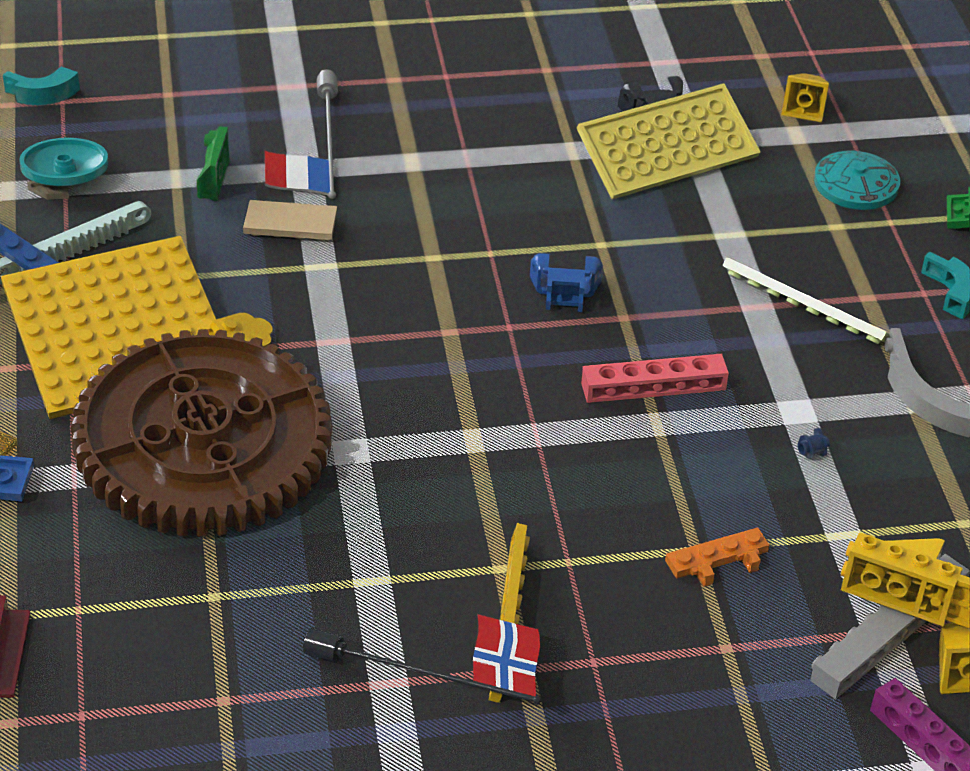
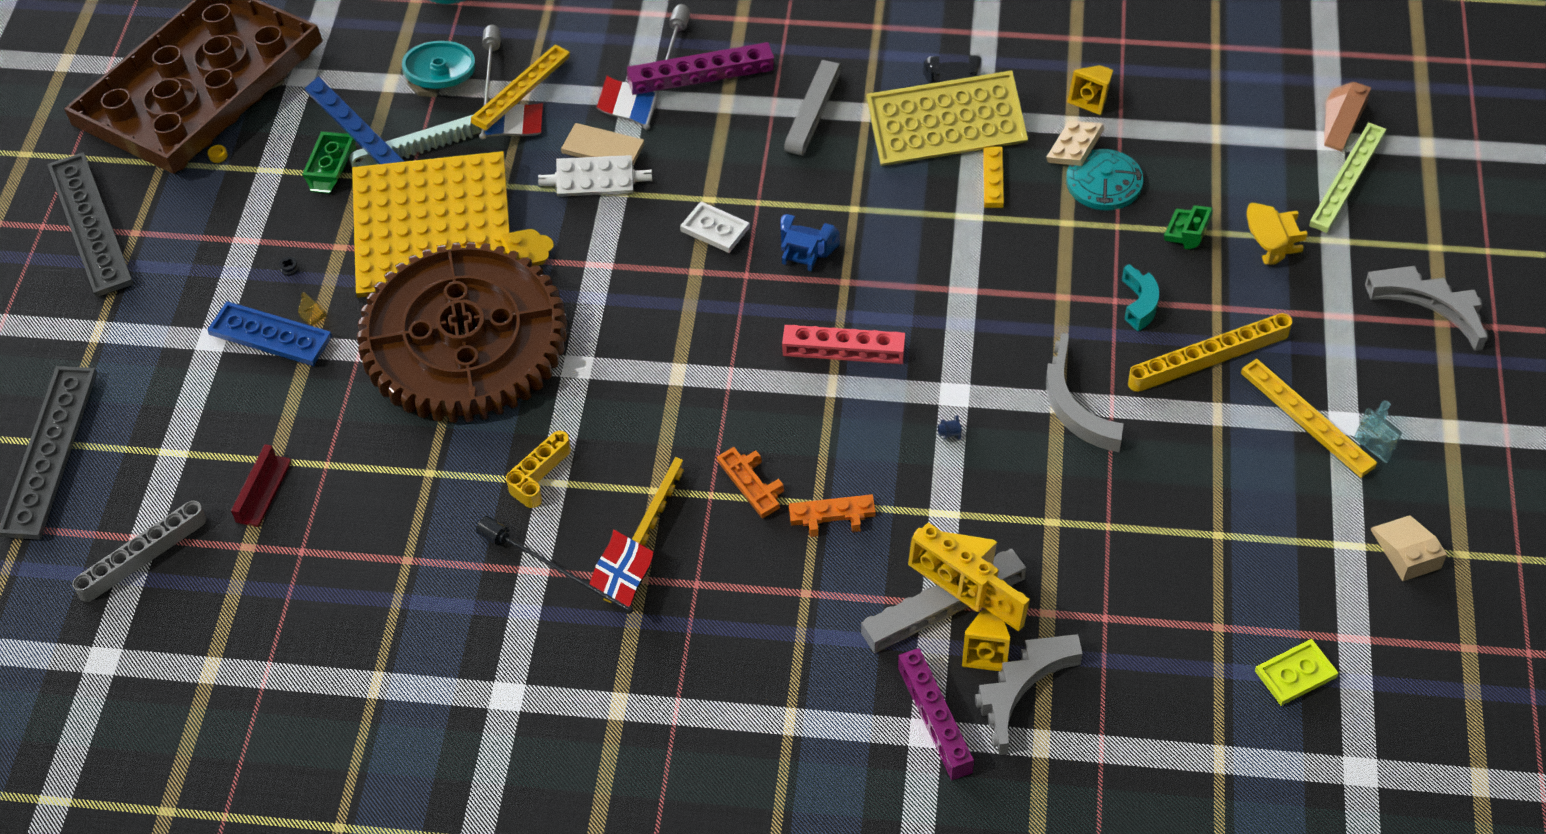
camera: 20 degrees right, 10 degrees up
(158, 206) = (519, 120): none -> flag
(170, 173) = (520, 87): none -> yellow plate
(217, 163) = (557, 87): green slope -> none
(294, 250) = (595, 176): none -> white plate
(340, 578) = (535, 467): none -> yellow beam
(371, 128) = (700, 68): none -> magenta brick
(454, 282) = (715, 227): none -> white plate
(513, 152) = (812, 108): none -> light grey beam
(597, 530) = (741, 472): none -> orange hinge
(738, 193) = (993, 177): none -> yellow plate
(812, 148) = (1075, 143): none -> tan plate
(813, 305) = (999, 289): plate -> none

